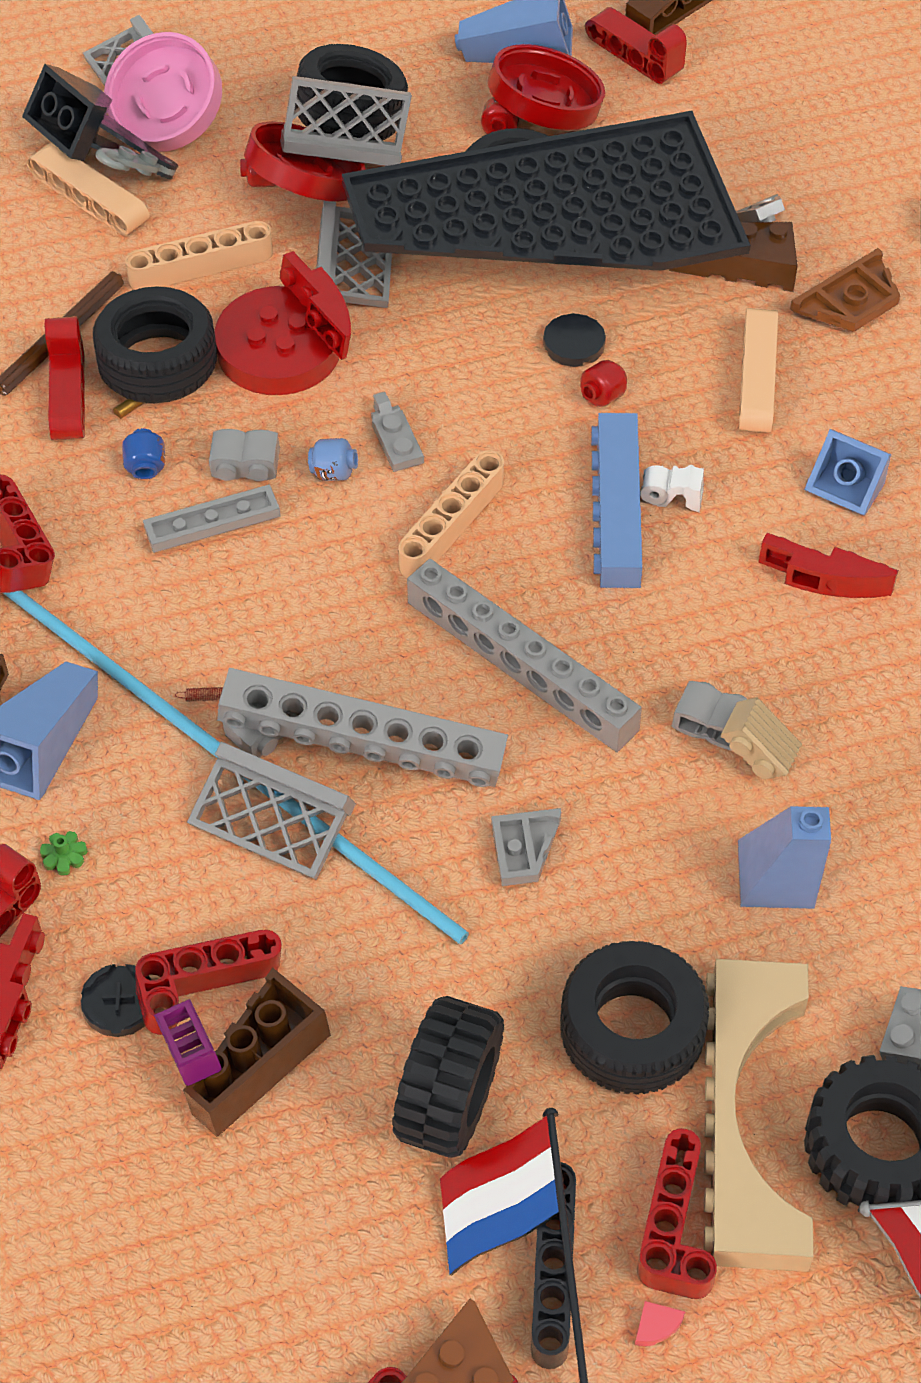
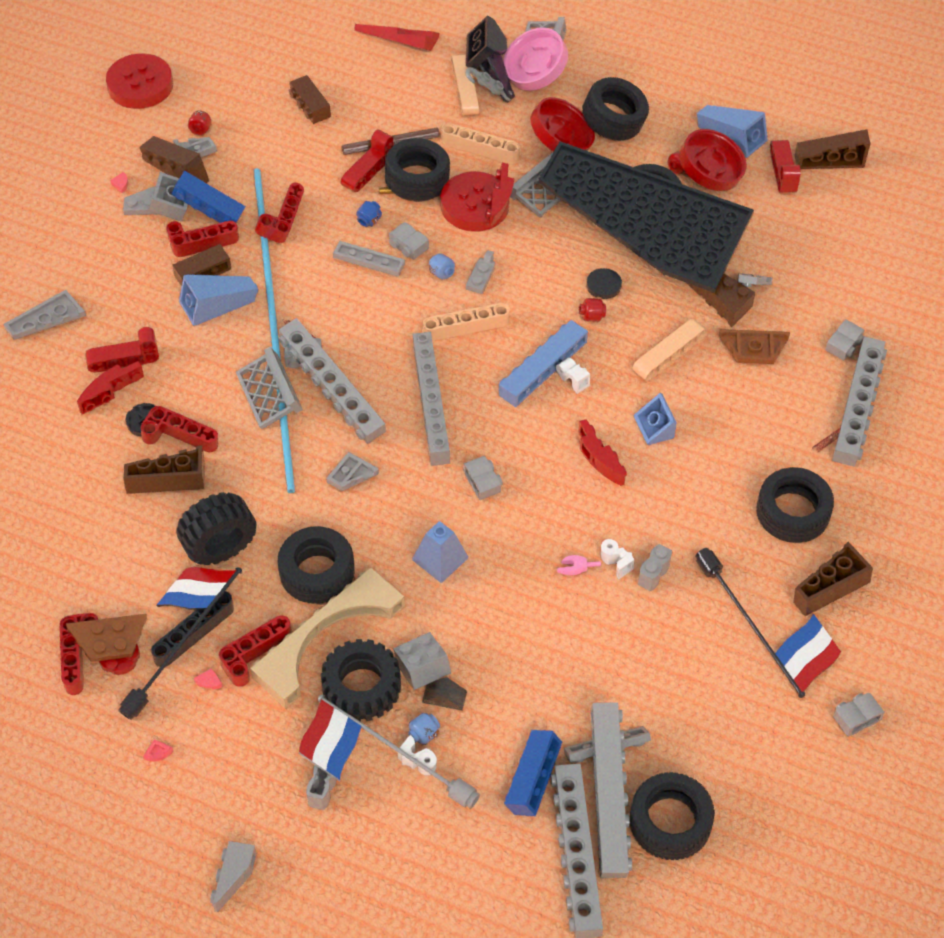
camera: 40 degrees right, 0 degrees up
(63, 852) = (180, 351): bright green plant -> none
(198, 1062) = (140, 449): magenta slope -> none
(344, 147) = (586, 129): light grey fence -> none
(761, 739) = (486, 499): tan brick -> none

